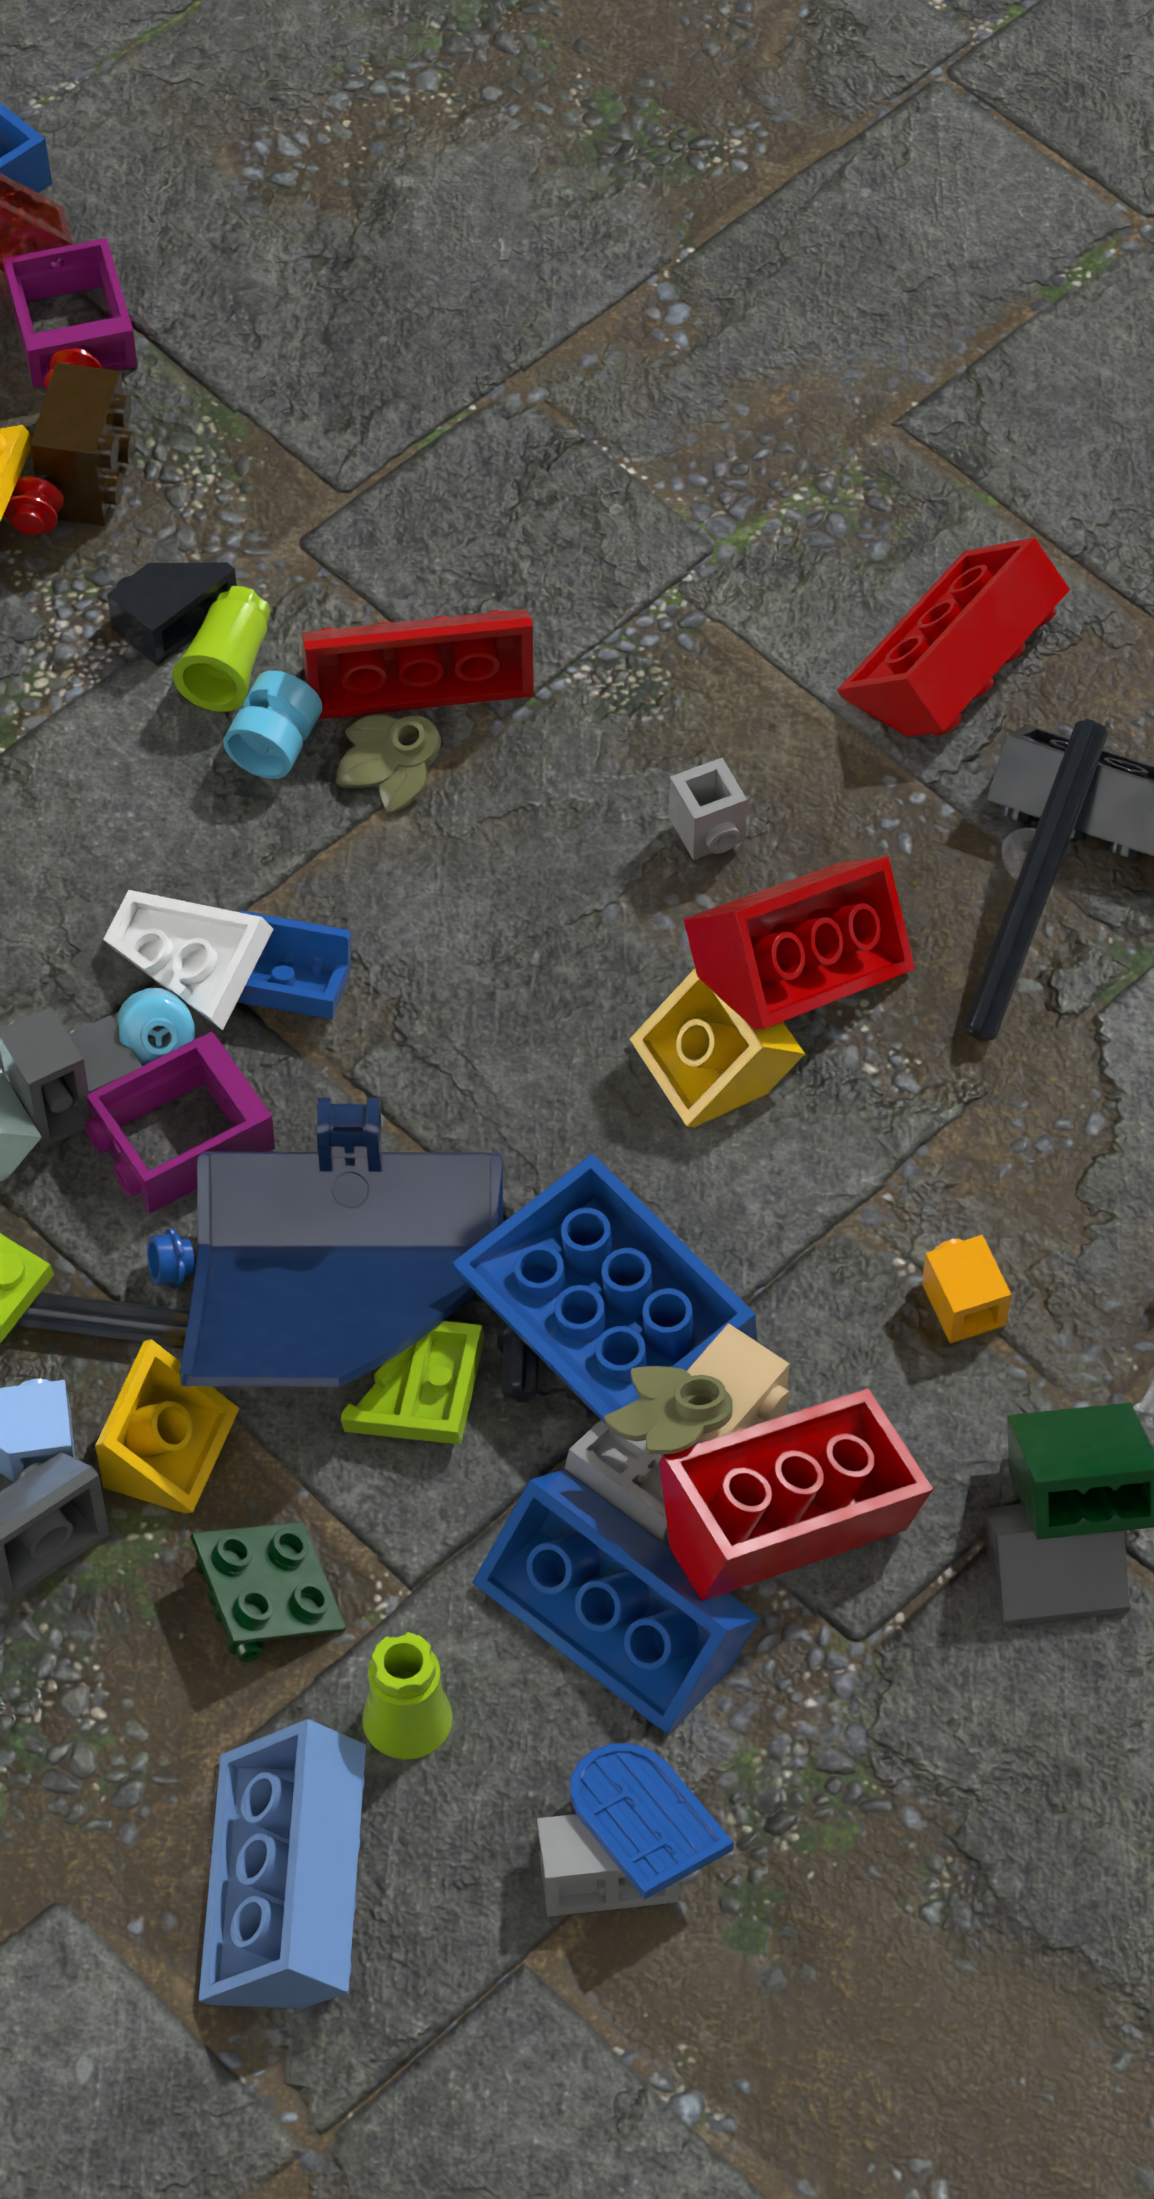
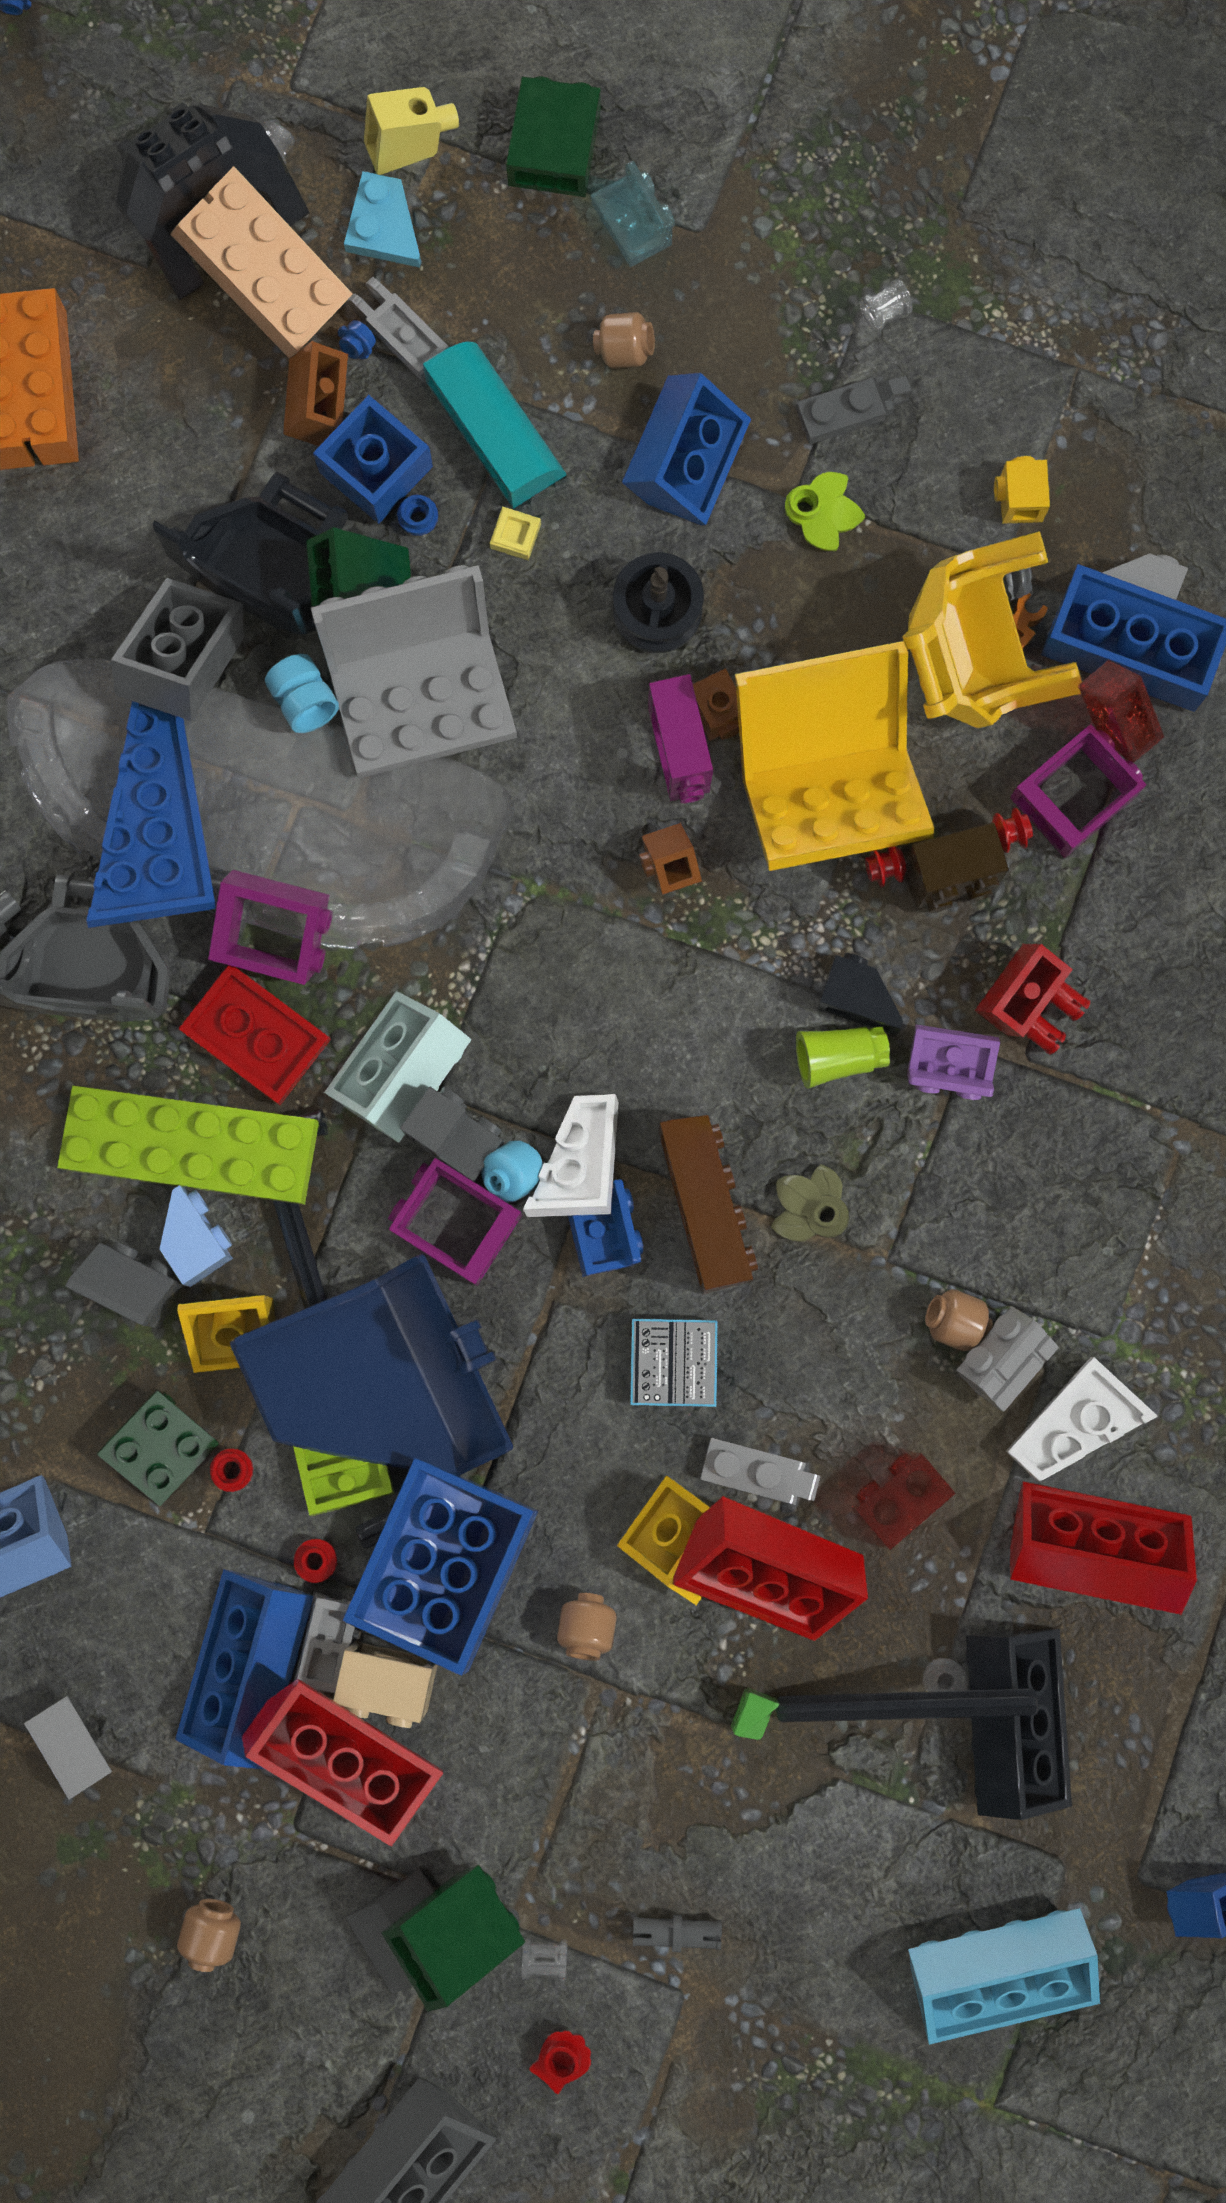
camera: 65 degrees right, 25 degrees up
(169, 1258) = (357, 1266): blue plate -> none
(270, 442) = (1024, 991): none -> red brick
(272, 724) = (791, 1118): medium azure wheel -> none
(301, 547) = (952, 1062): none -> medium lavender bracket
(319, 854) = (706, 1203): none -> reddish brown slope
(347, 1498) = (218, 1473): none -> red plate
(405, 1701) = (129, 1573): lime plant -> none
(420, 663) = (894, 1187): red slope -> none
(495, 967) = (674, 1362): none -> light grey tile
(516, 1477) = (327, 1553): none -> red plate
(611, 663) = (958, 1320): none -> medium nougat head
(645, 1816) = (92, 1763): blue window -> none
(662, 953) = (758, 1472): none -> light grey hinge
(671, 1409) = (339, 1659): olive plate -> none
(683, 631) = (1007, 1358): none -> light grey brick
(707, 809) = (860, 1449): light grey brick -> none
(770, 1186) = (586, 1627): none -> medium nougat head
(787, 790) = (909, 1509): none -> clear red brick
(795, 603) = (1078, 1420): none -> white wing
(945, 1779) = (209, 1934): none -> medium nougat head
(964, 1059) = (753, 1714): none -> bright green slope
(966, 1288) = (570, 1790): light orange brick -> none

